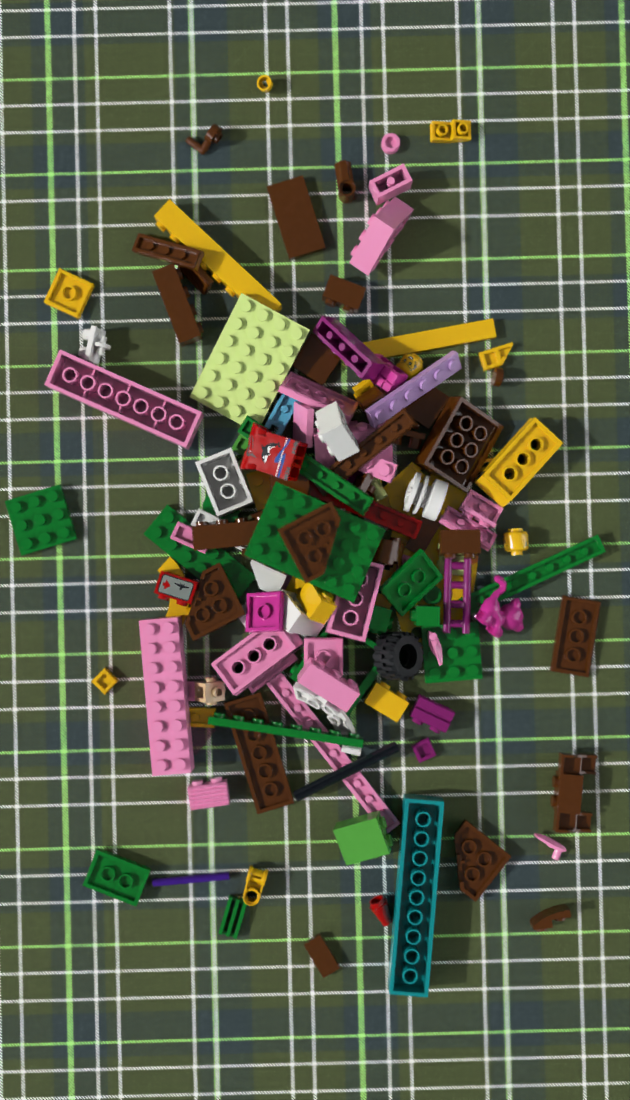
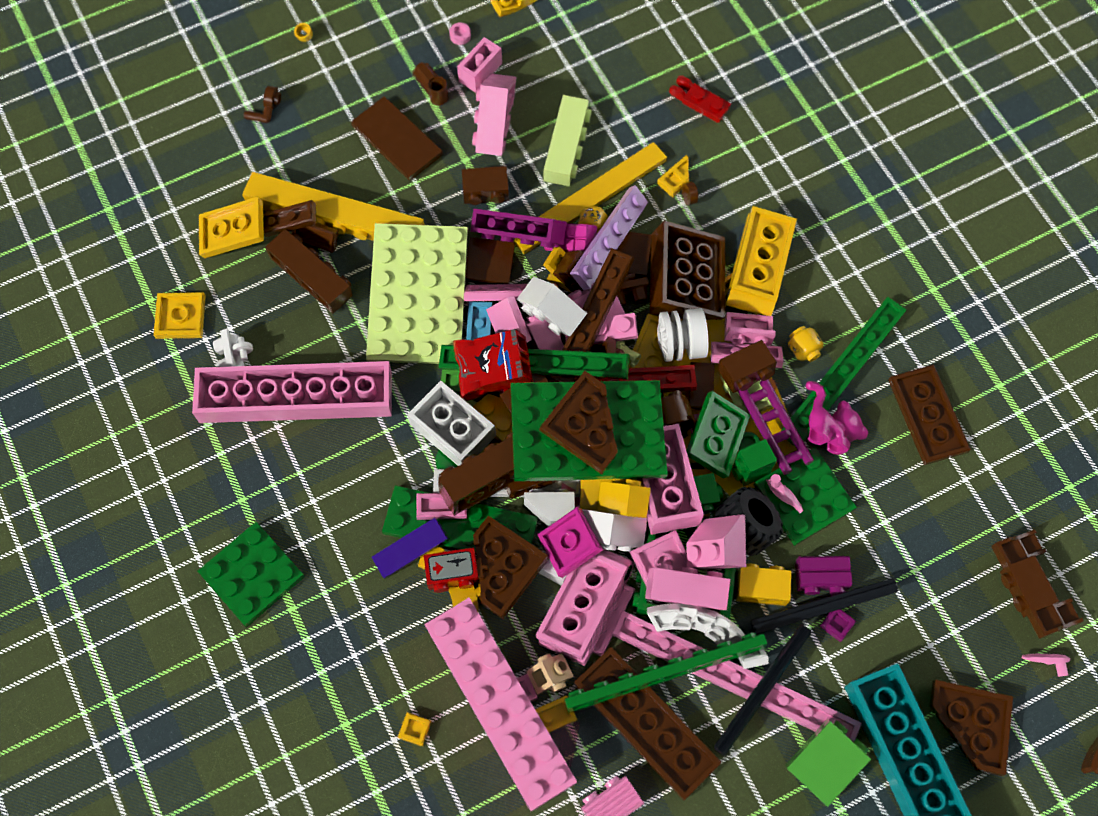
camera: 25 degrees left, 20 degrees down
(134, 240) = (231, 227): none -> yellow plate
(156, 557) = (410, 548): none -> dark purple tile
(364, 665) = (718, 544): none -> bright pink slope
(420, 735) = (824, 606): none -> black axle
(426, 284) = (566, 140): none -> yellowish green brick
(551, 298) = (700, 99): none -> red hinge

